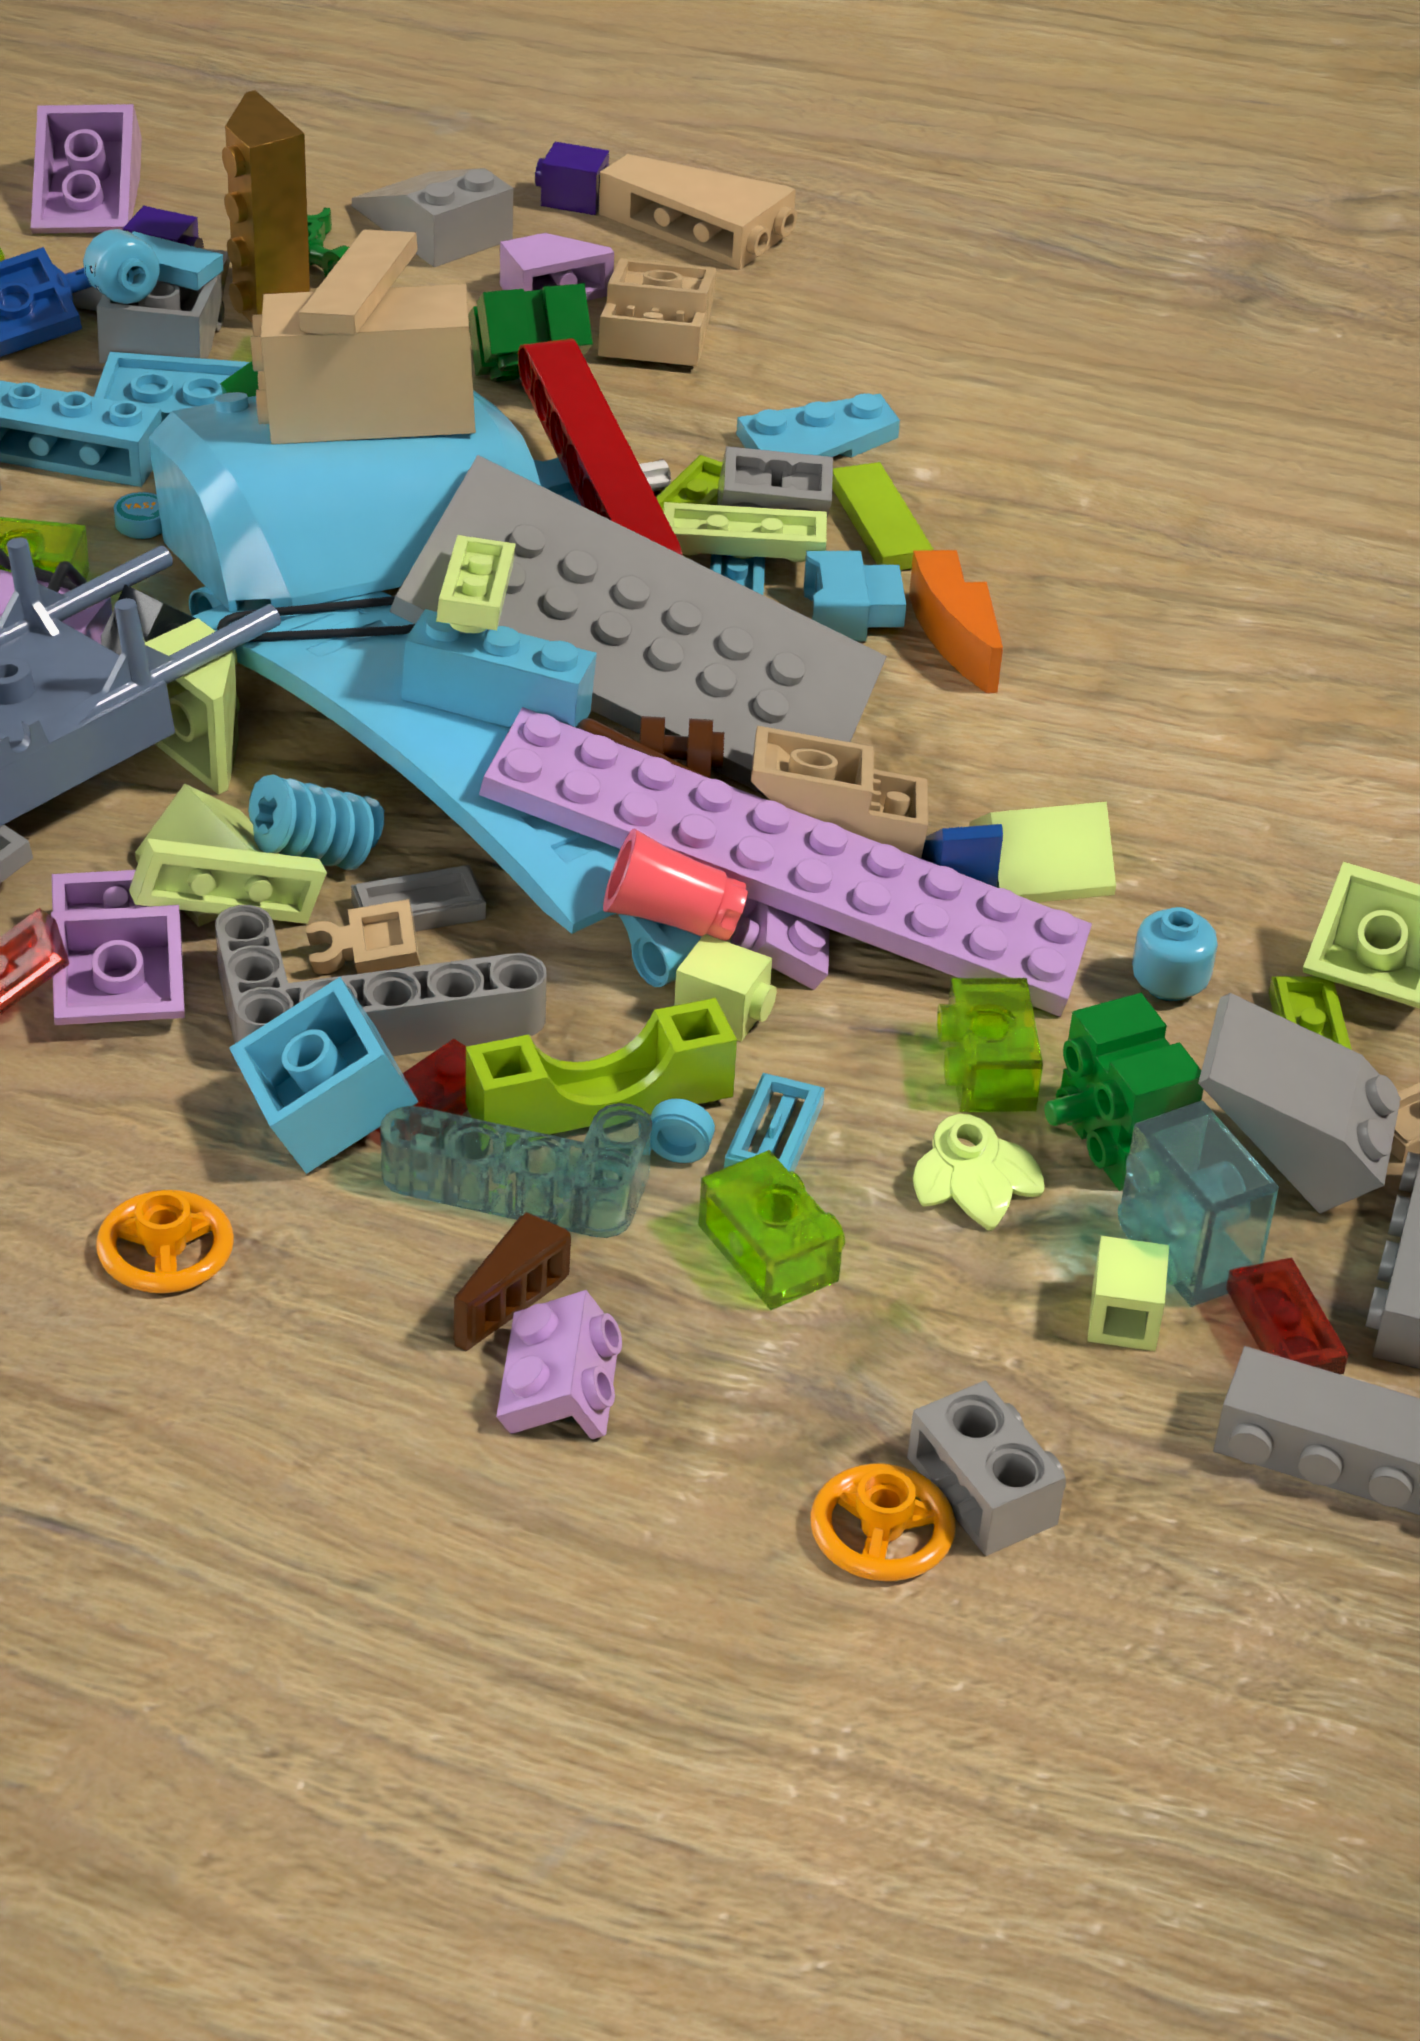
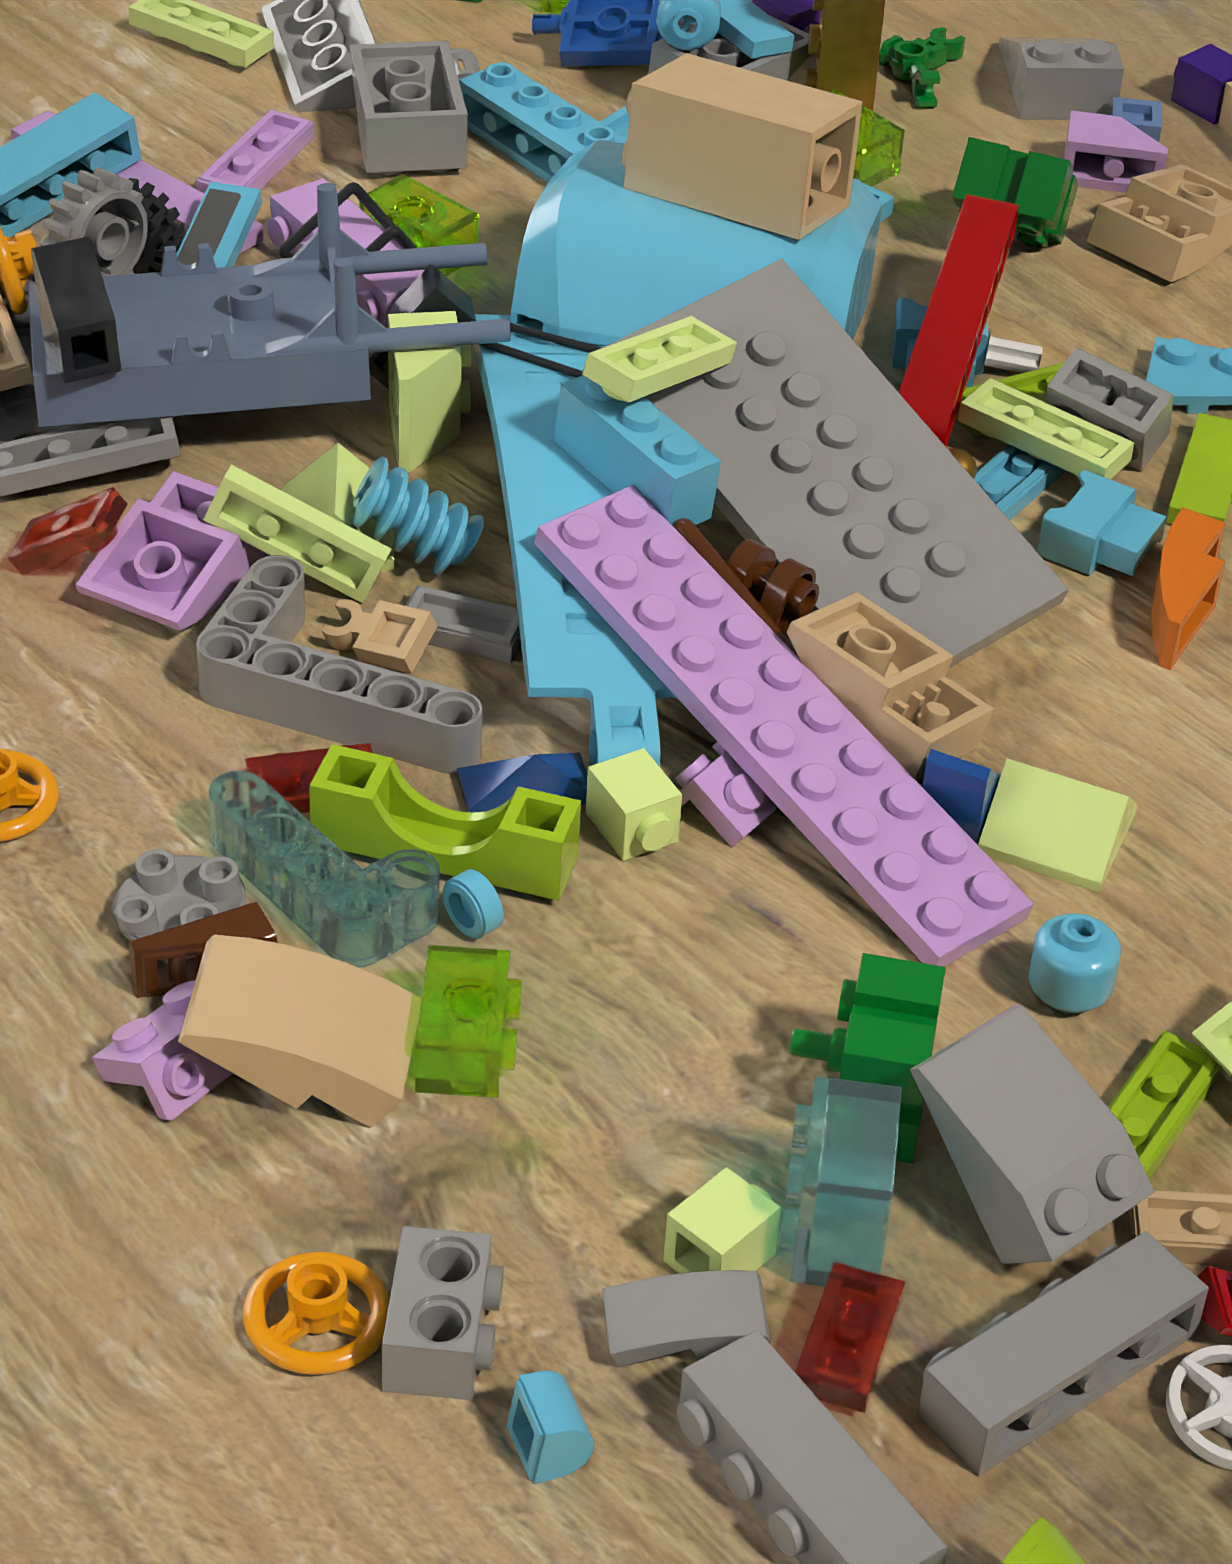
camera: 35 degrees right, 0 degrees up
(322, 1075) = (211, 717): medium azure brick -> none
(357, 282) = (763, 67): tan tile -> none
(427, 1248) = (175, 891): none -> light grey dish
(538, 223) = (1140, 113): none -> medium blue plate
(604, 1016) = (493, 783): none -> blue slope
(667, 1294) = (302, 1025): none -> tan slope
(673, 889) = (630, 693): coral plant -> none
(795, 1145) = (574, 950): medium azure tile -> none
(975, 1176) = (703, 1069): yellowish green plate -> none
(991, 1045) = (820, 948): clear neon green brick -> none
(1148, 1509) = (548, 1427): none -> medium azure brick
(1161, 1369) = (683, 1313): none -> light grey slope

